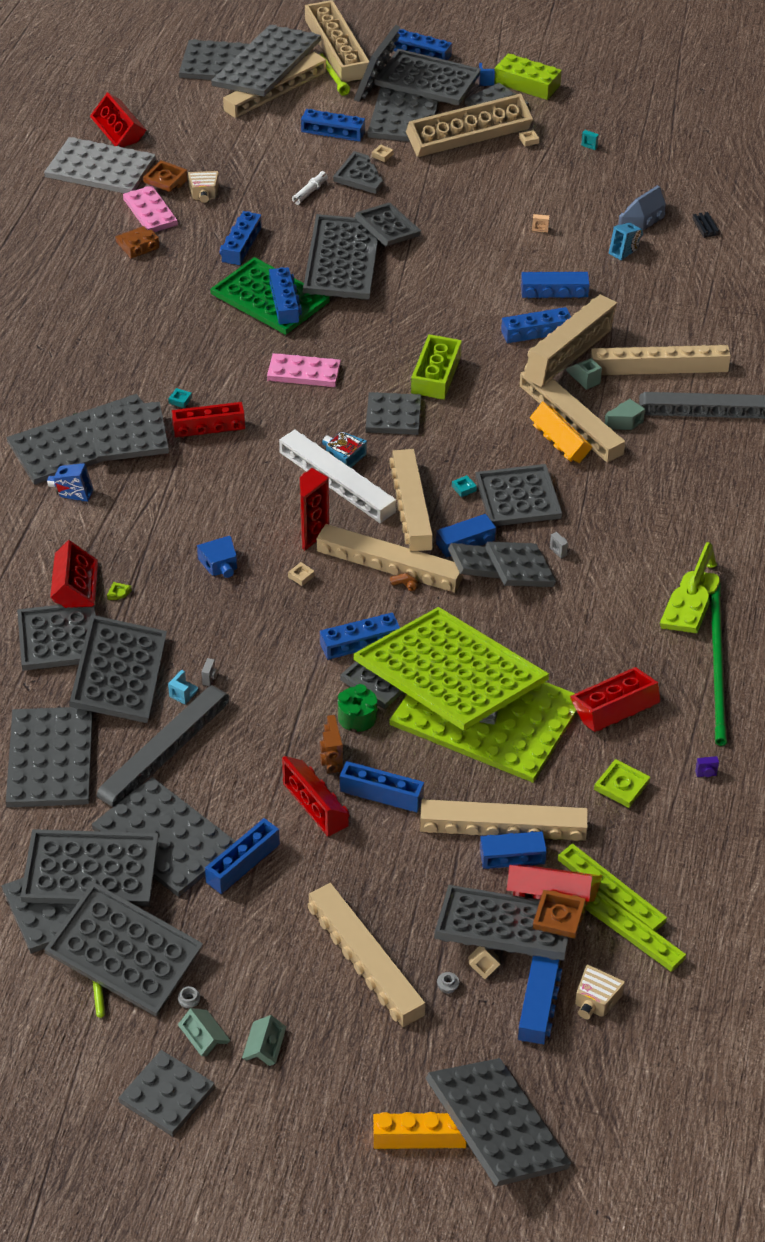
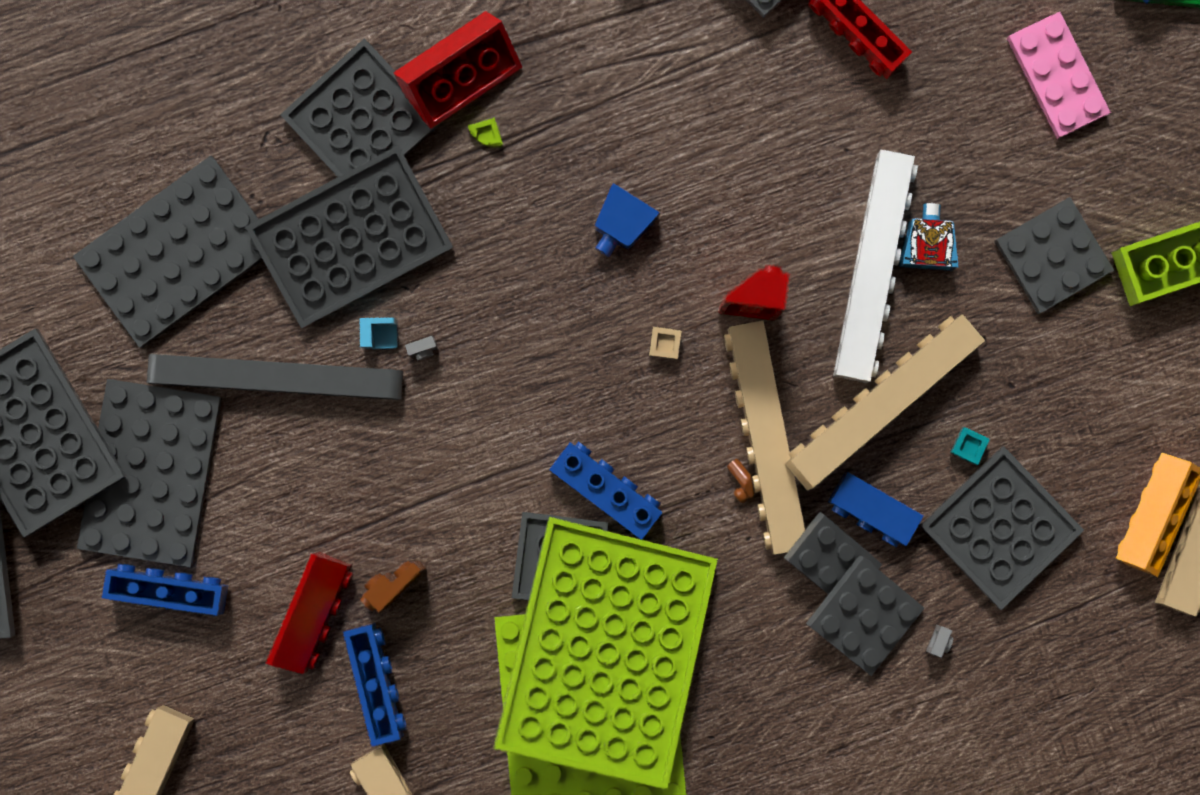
camera: 60 degrees right, 40 degrees up
(357, 708) = (465, 577): green brick -> none

